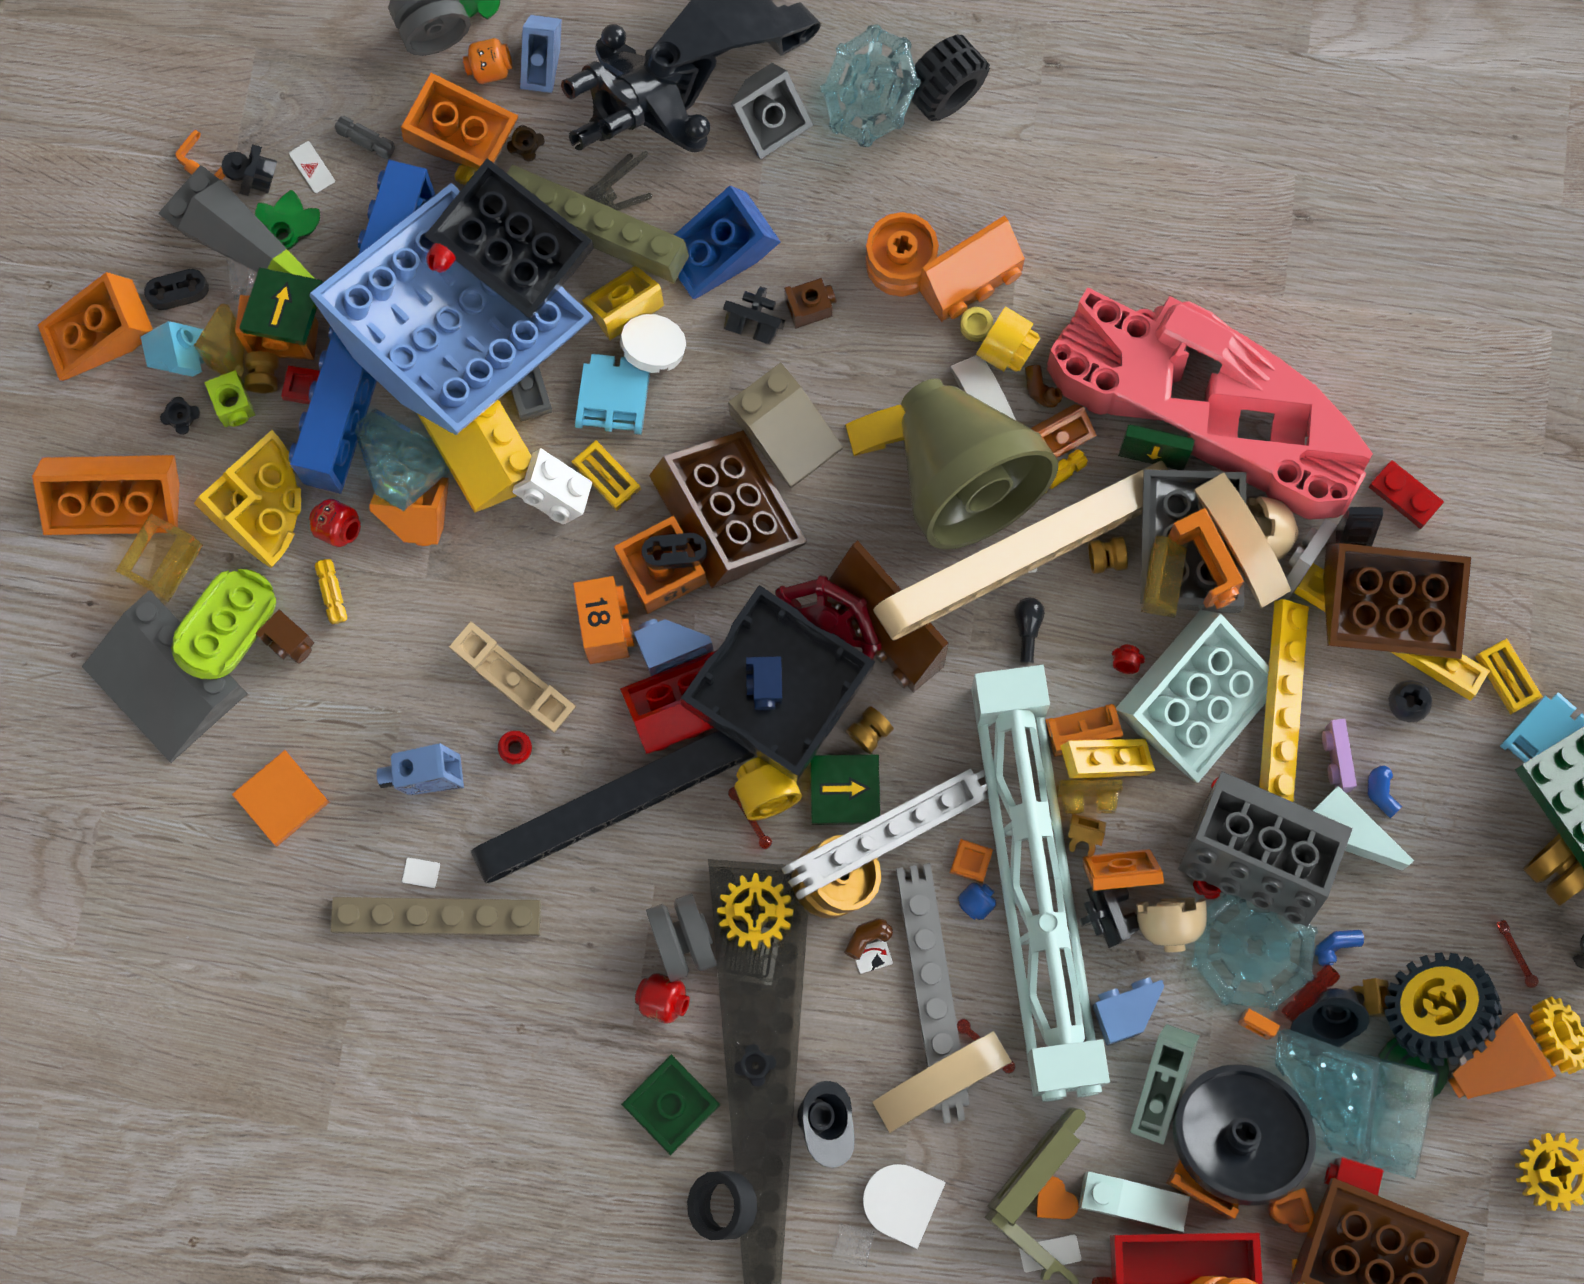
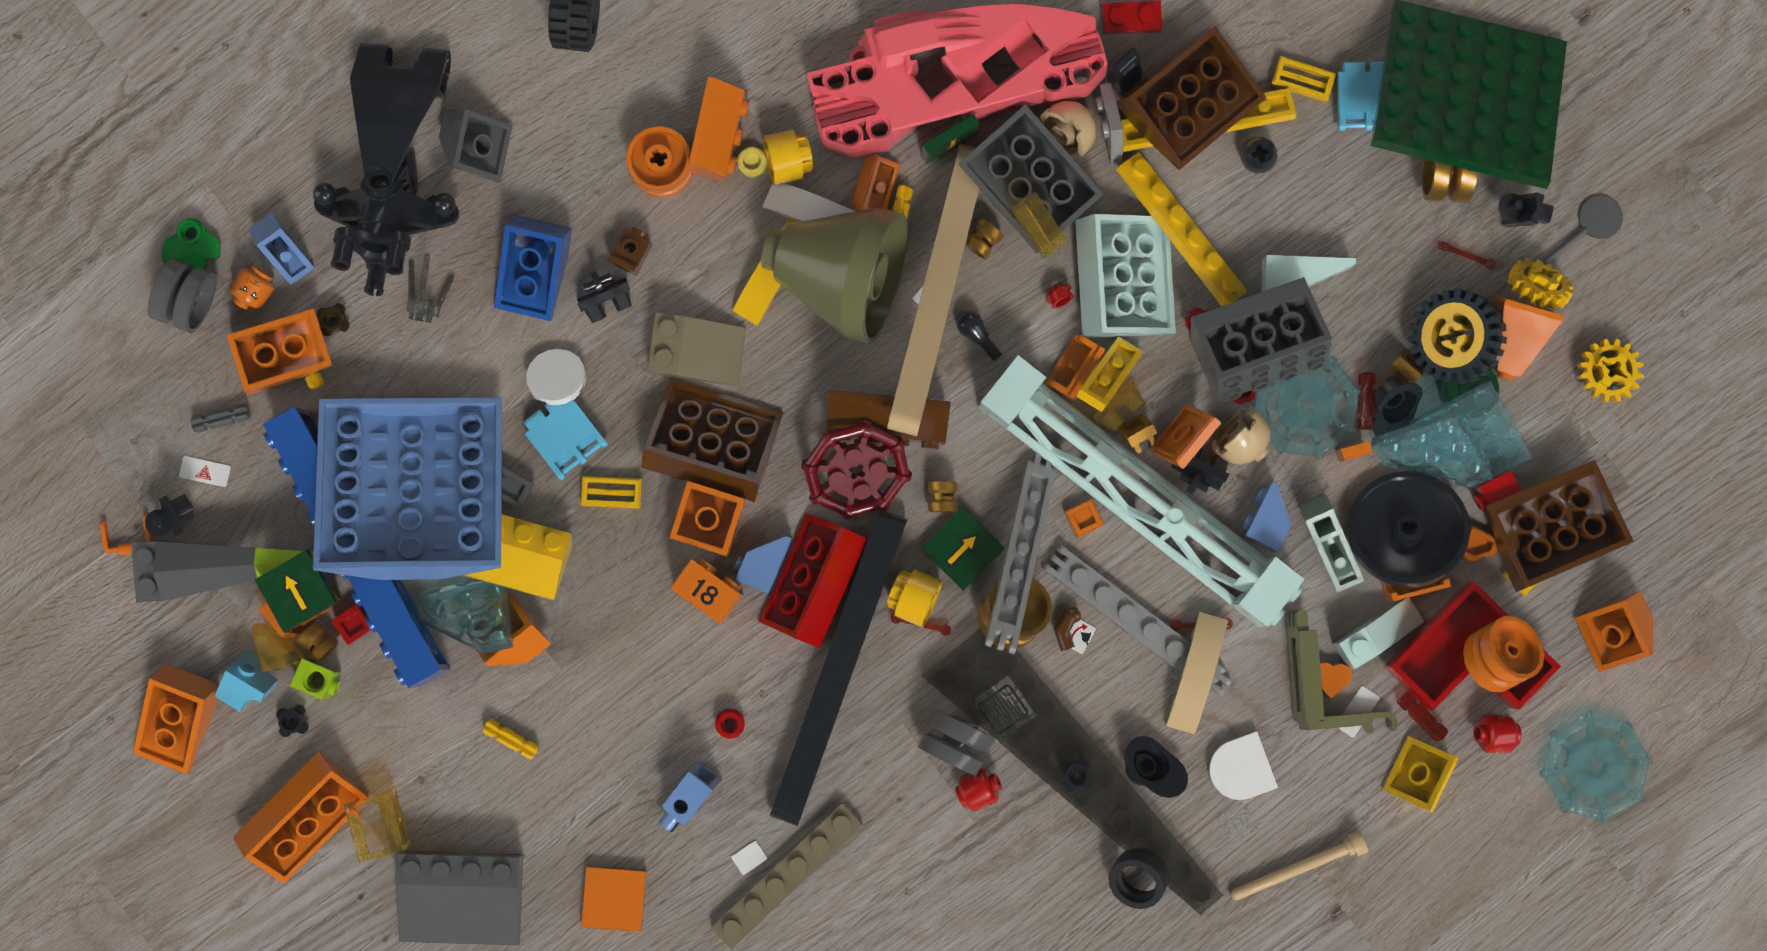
camera: 50 degrees left, 10 degrees up
(176, 289) = (207, 644): black beam -> none
(223, 624) = (467, 828): lime tile -> none
(257, 500) = (402, 727): yellow brick -> none
(286, 638) = (514, 796): reddish brown brick -> none
(288, 217) = (224, 521): green plate -> none
(334, 523) = (468, 693): red head -> none
(439, 258) = (369, 460): red hinge -> none
(510, 239) = (399, 402): black slope -> none
(512, 677) = (685, 681): tan slope -> none
(554, 488) = (590, 535): white bracket -> none
(611, 229) = (437, 334): olive brick -> none
(624, 299) = (506, 365): yellow slope -> none
(671, 1104) = (1046, 847): dark green tile -> none
(672, 543) = (706, 500): black beam -> none
(738, 912) = (996, 672): yellow gear -> none
(765, 681) = (856, 535): dark blue brick -> none
(817, 683) = (864, 528): black tile -> none
(891, 92) = (518, 76): clear light blue plate -> none
(977, 900) = (1110, 539): blue piece -> none
(1038, 391) = (837, 169): reddish brown arm -> none
(1213, 551) = (1059, 181): orange panel -> none
(1244, 539) = (1063, 150): tan slope -> none
(1336, 940) = (1352, 353): blue arm -> none
(1341, 769) = (1256, 240): lavender plate -> none
(1379, 790) = (1291, 231): blue arm -> none

